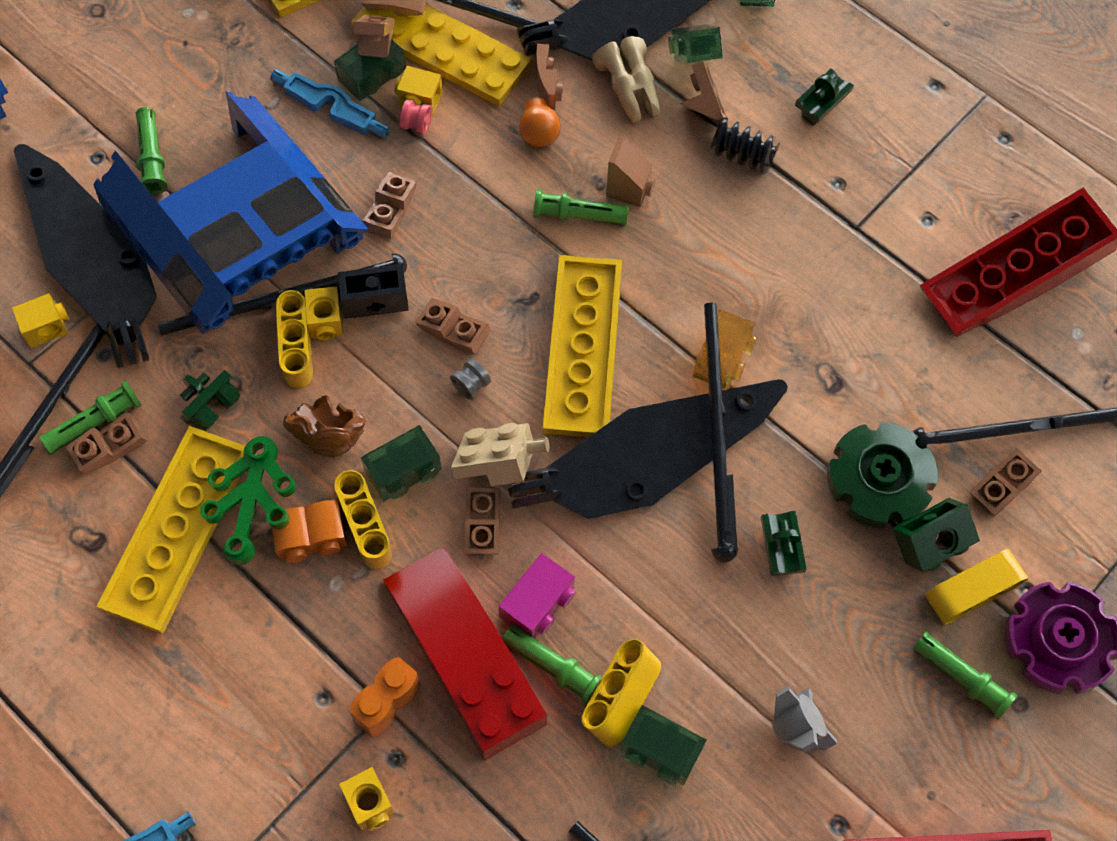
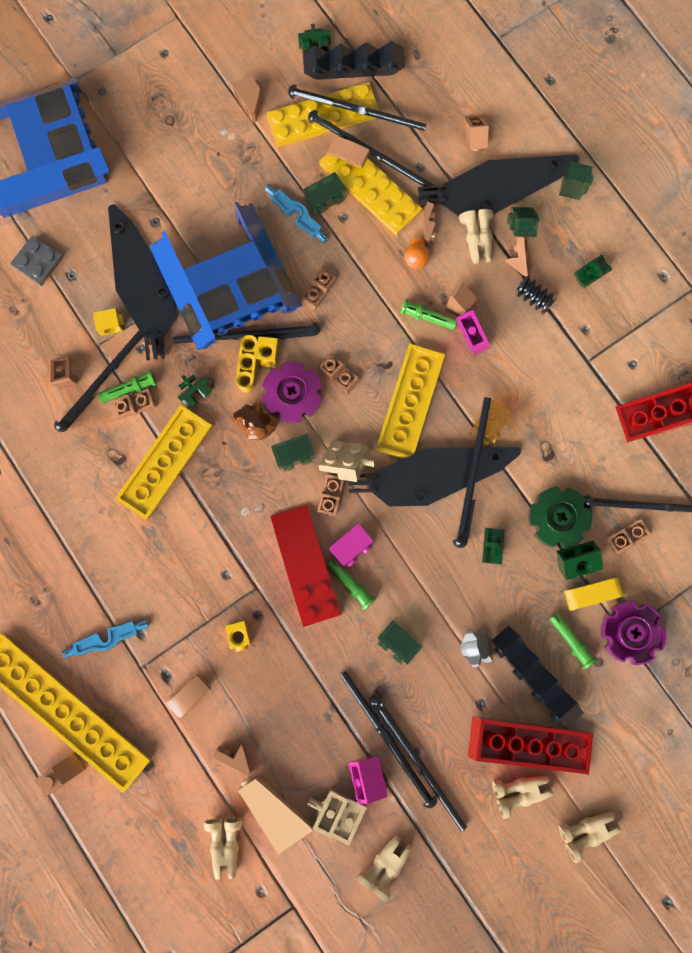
camera: 15 degrees right, 15 degrees up
(150, 161) = (184, 232): bright green pin -> none
(249, 493) = (206, 453): green plant -> none
(310, 531) = (235, 480): orange brick -> none
(356, 506) = (262, 471): yellow beam -> none
(373, 291) = (297, 344): black brick -> none
(374, 35) = (330, 176): nougat slope -> none
(379, 368) = (291, 378): none -> magenta piece
(392, 690) = (262, 579): orange brick -> none
(415, 116) = (345, 234): coral wheel -> none
(420, 86) = (350, 217): yellow brick -> none
(470, 379) = (341, 409): flat silver wheel -> none
(621, 692) = (384, 609): yellow beam -> none
(660, 217) = (473, 332): none -> dark pink brick
(931, 758) = (540, 681): none -> black brick

